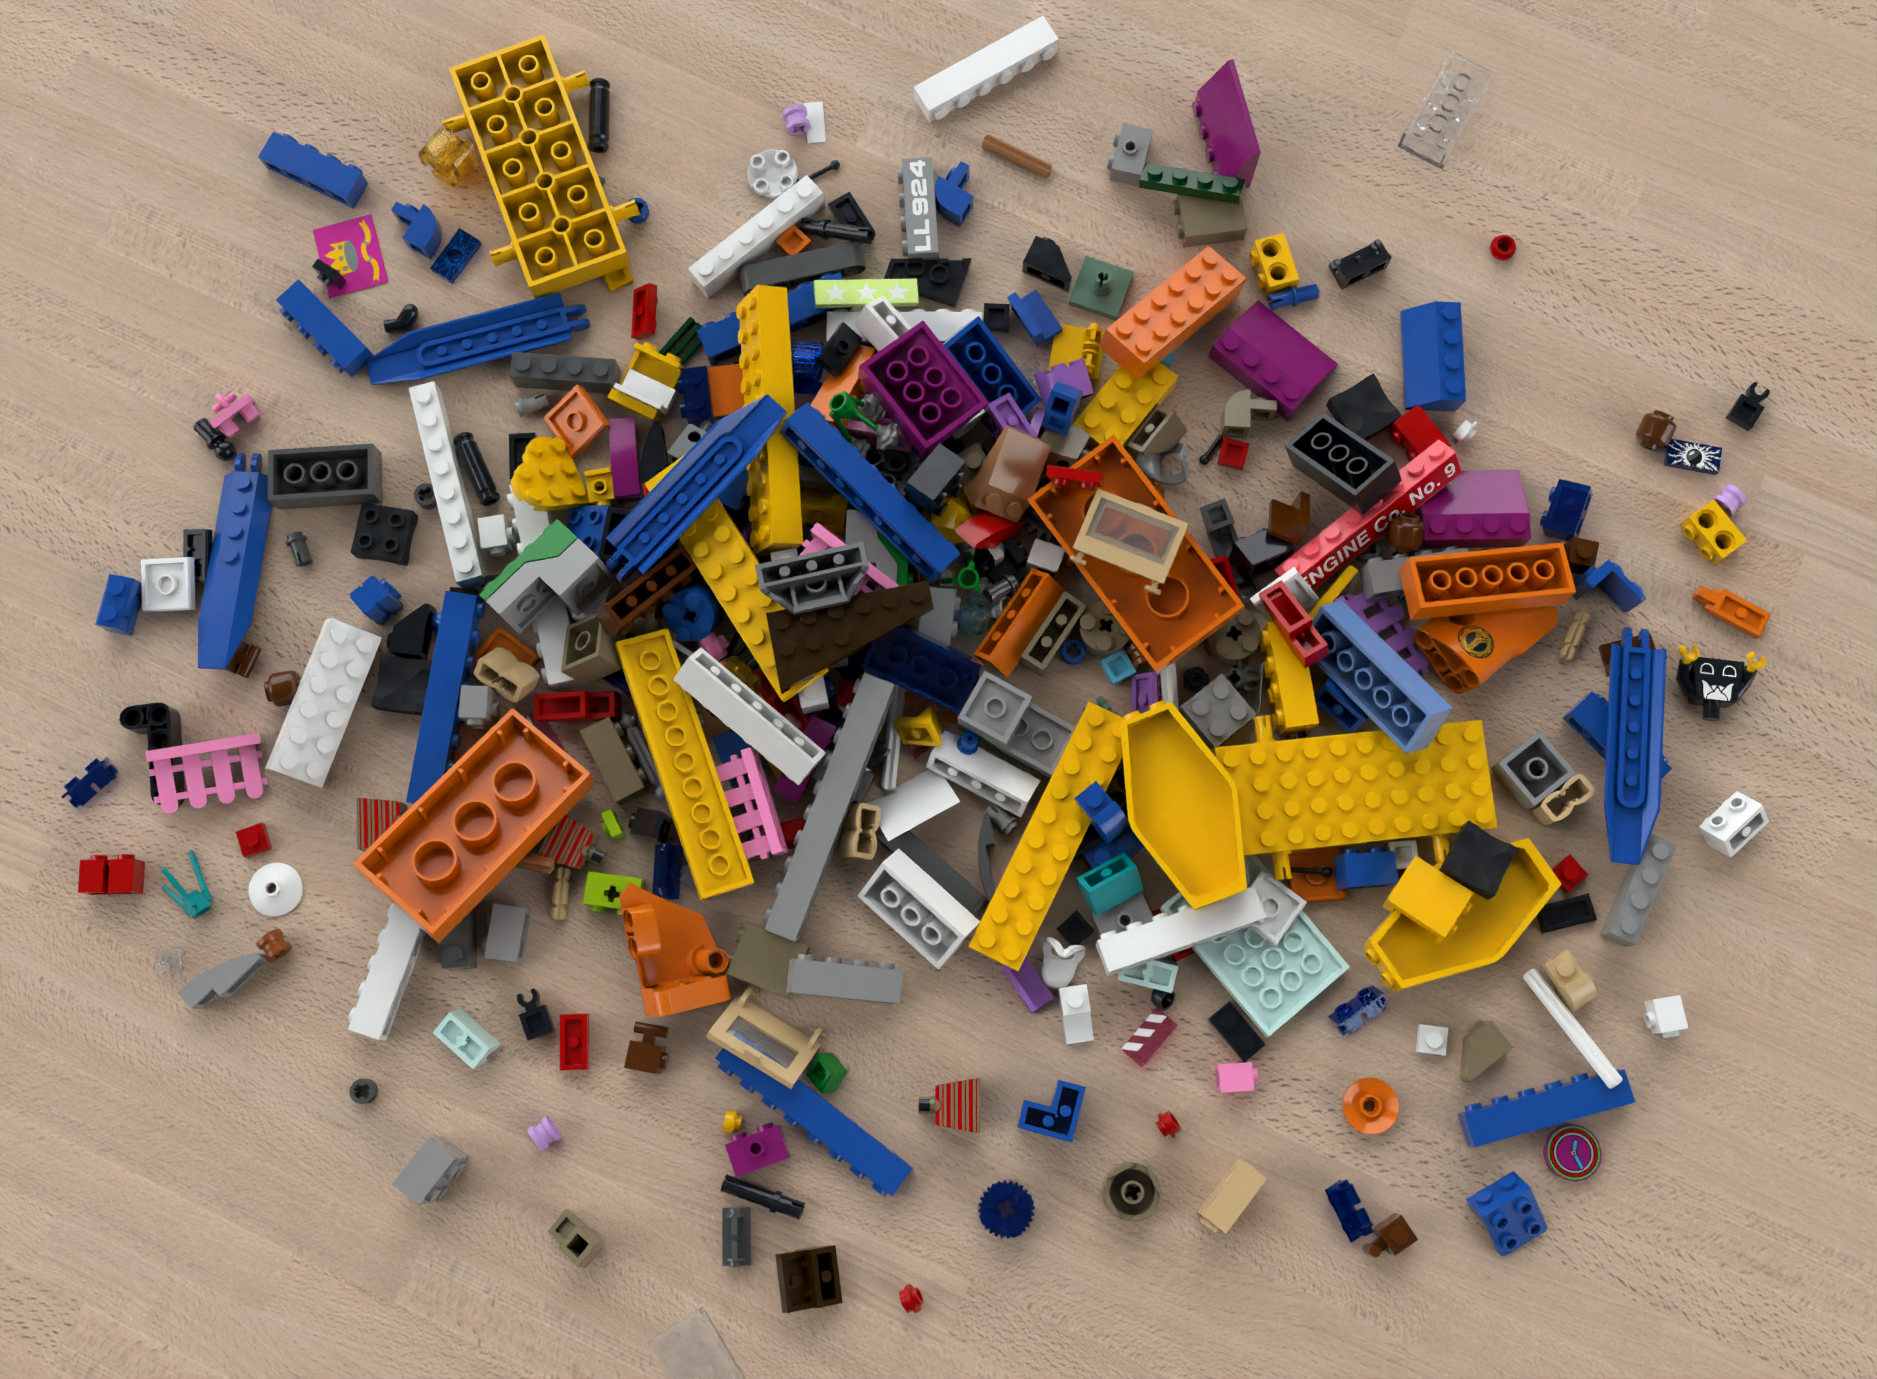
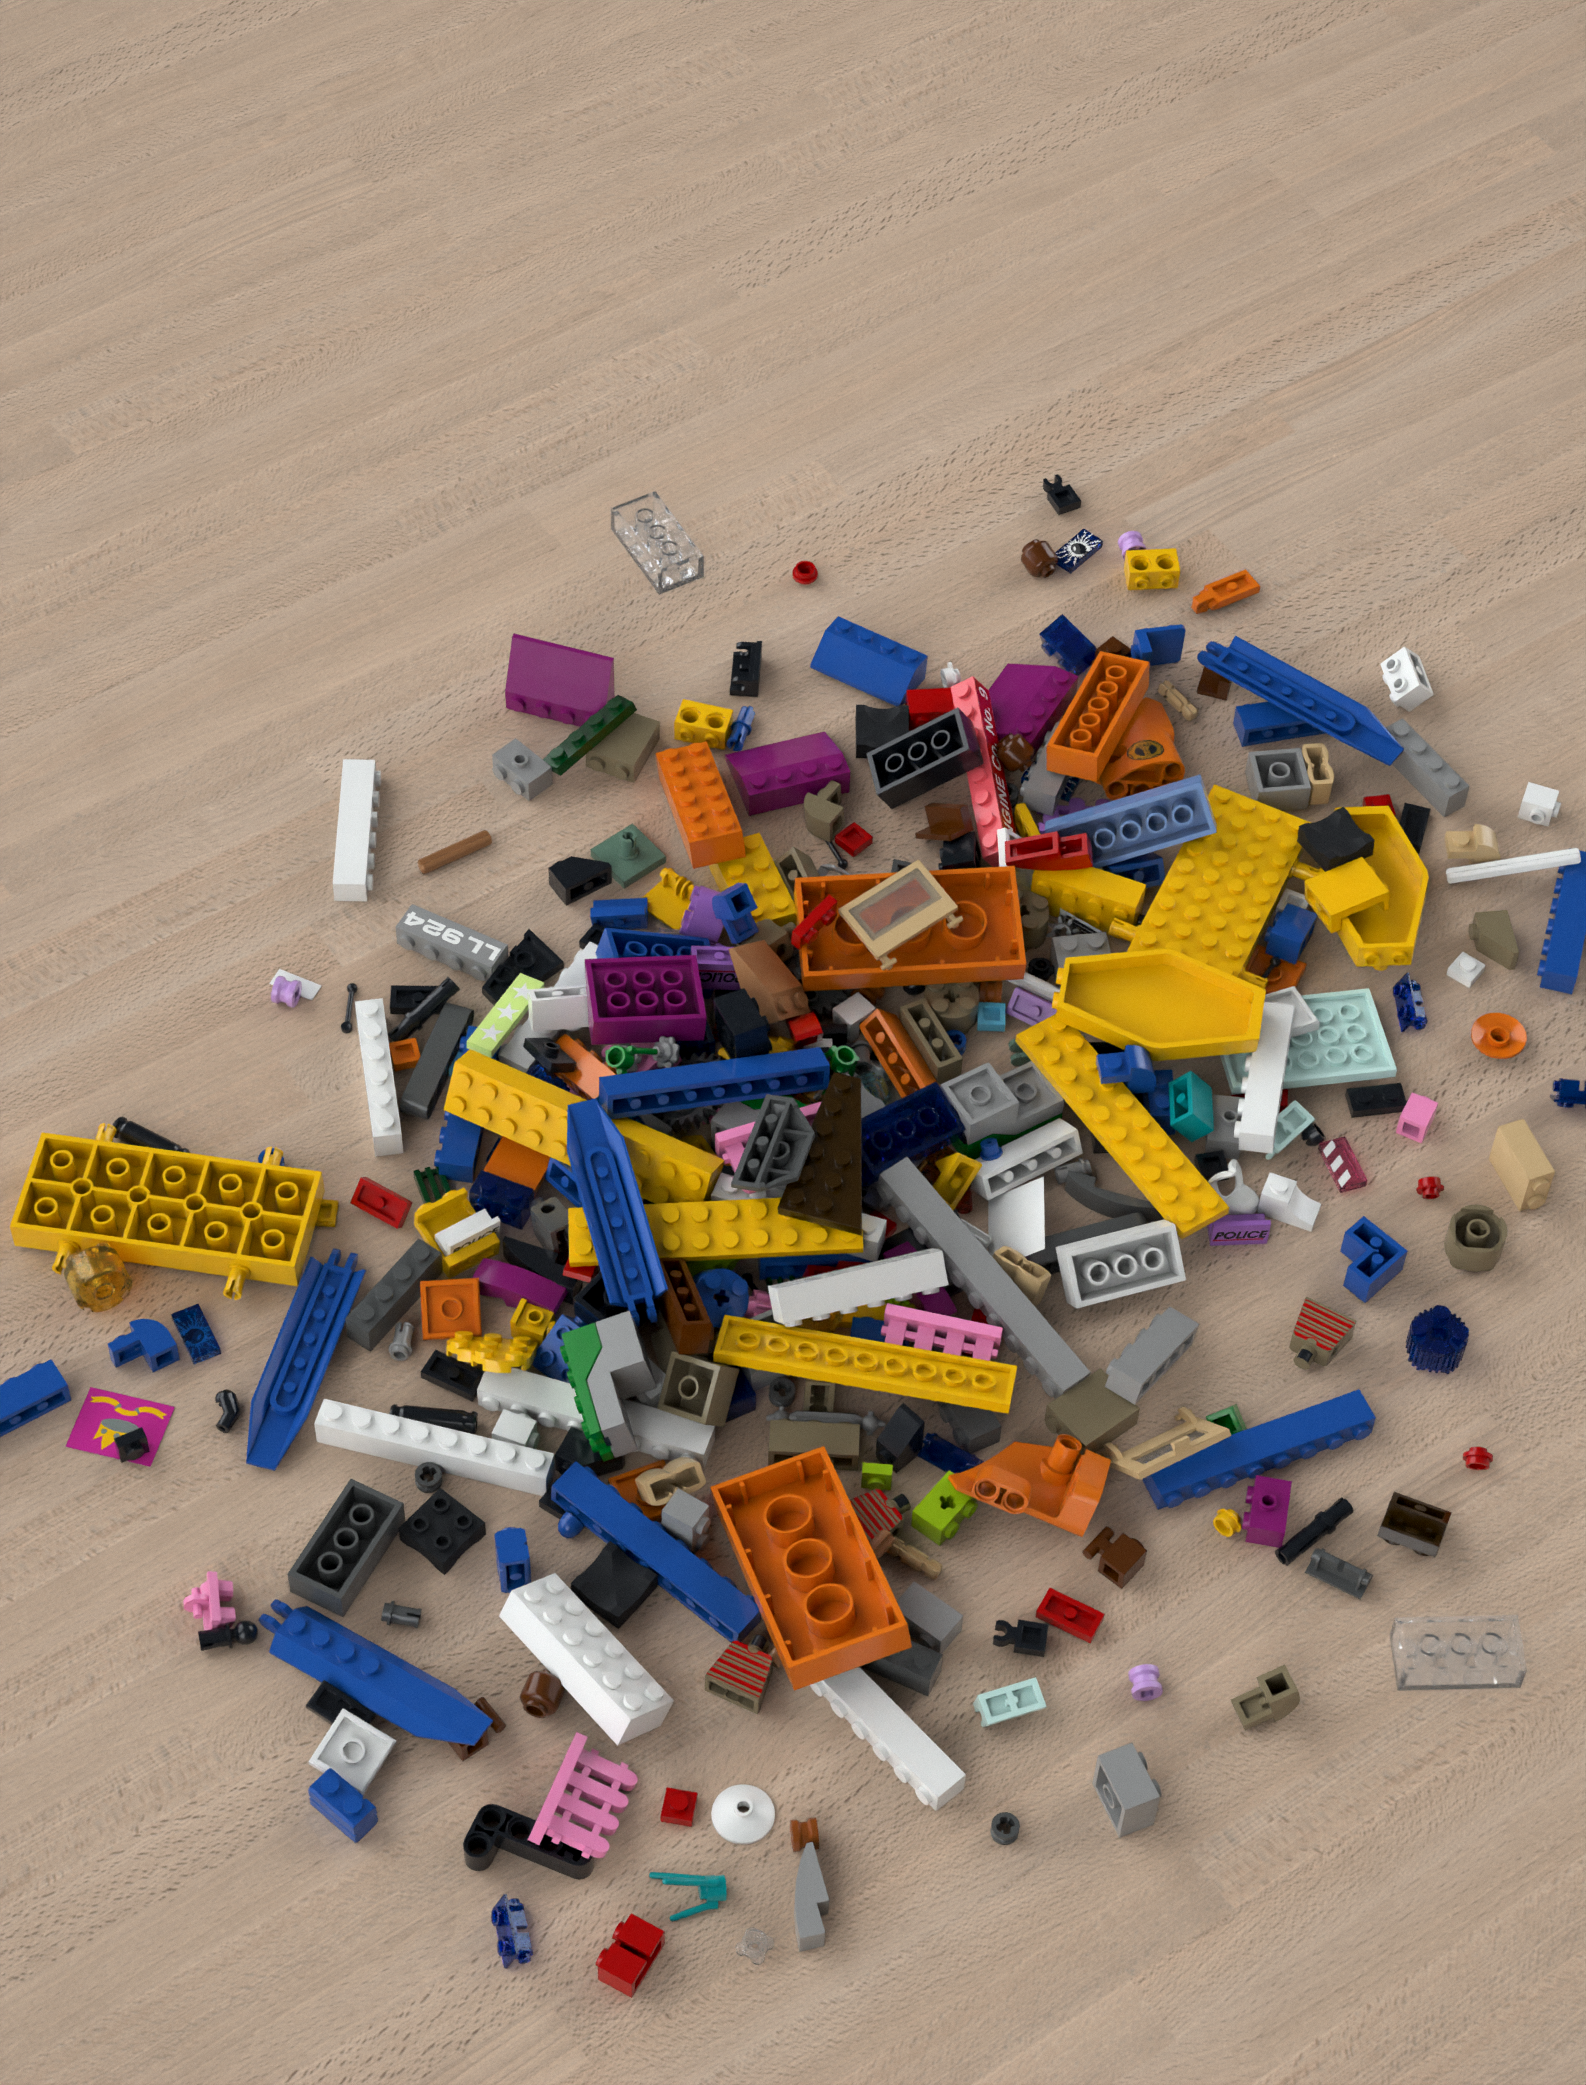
camera: 65 degrees left, 25 degrees down
(324, 327) = (185, 1478): blue brick -> none
(412, 634) = (567, 1552): black slope -> none
(577, 706) = (739, 1446): red slope -> none
(772, 173) = (322, 1037): white dish -> none
(950, 199) = (464, 911): blue brick -> none
(1715, 681) = (1280, 629): torso -> none

